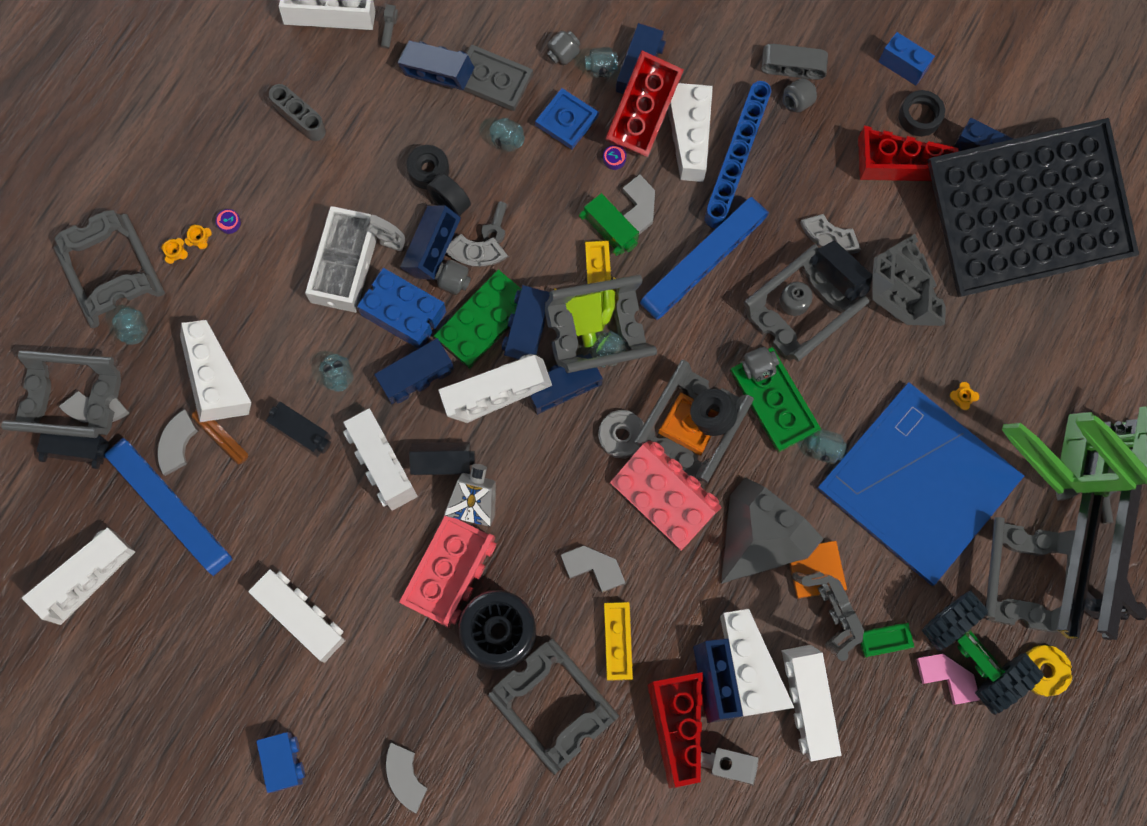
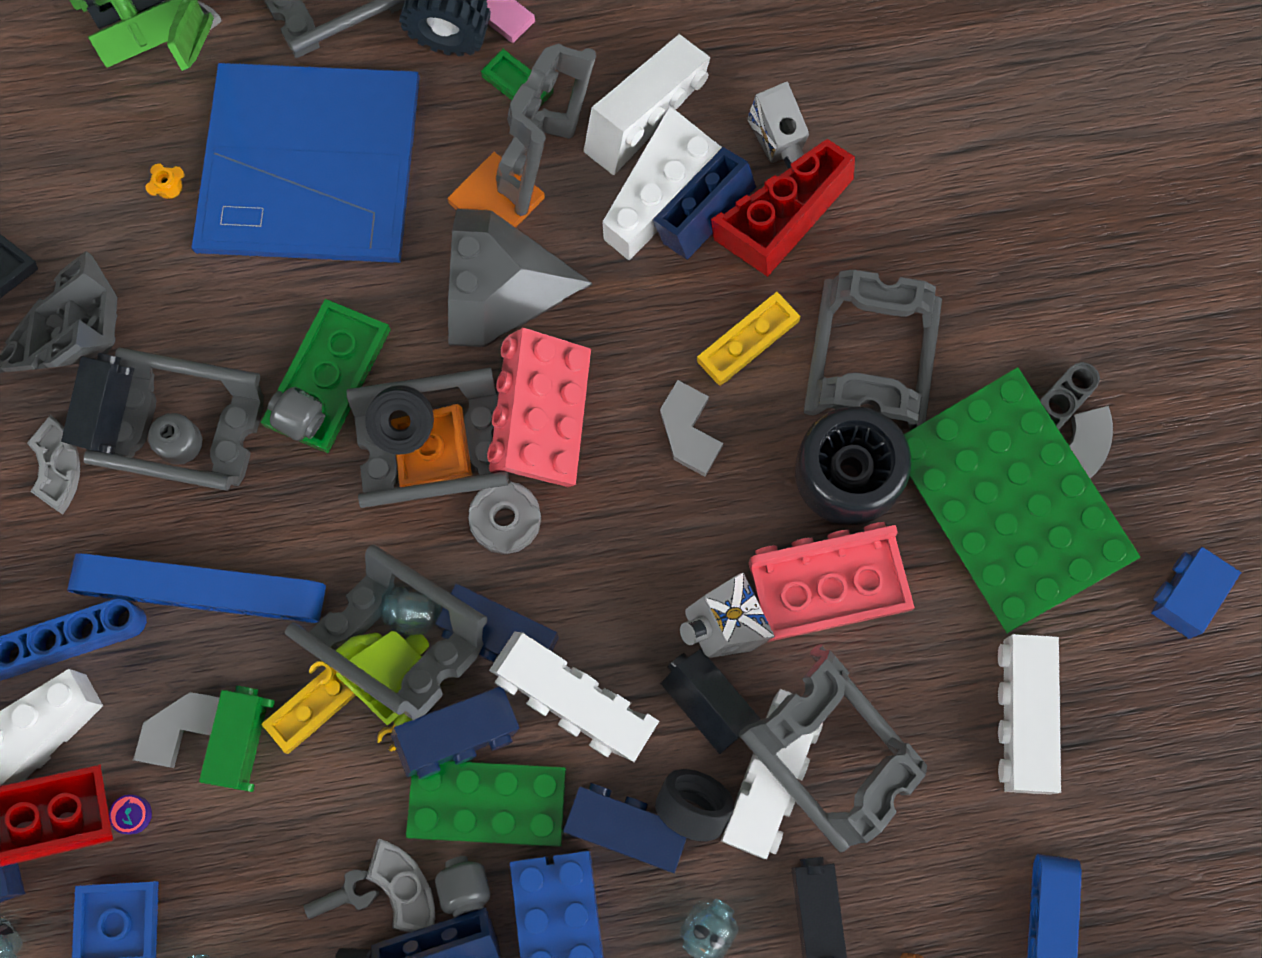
camera: 125 degrees left, 0 degrees up
(387, 480) = (800, 716): none -> dark grey piece
(406, 420) = (688, 819): none -> black tyre
(409, 705) = (1015, 501): none -> green plate
(433, 767) = (1068, 395): none -> dark grey beam
(827, 446) = (341, 279): clear light blue head -> none

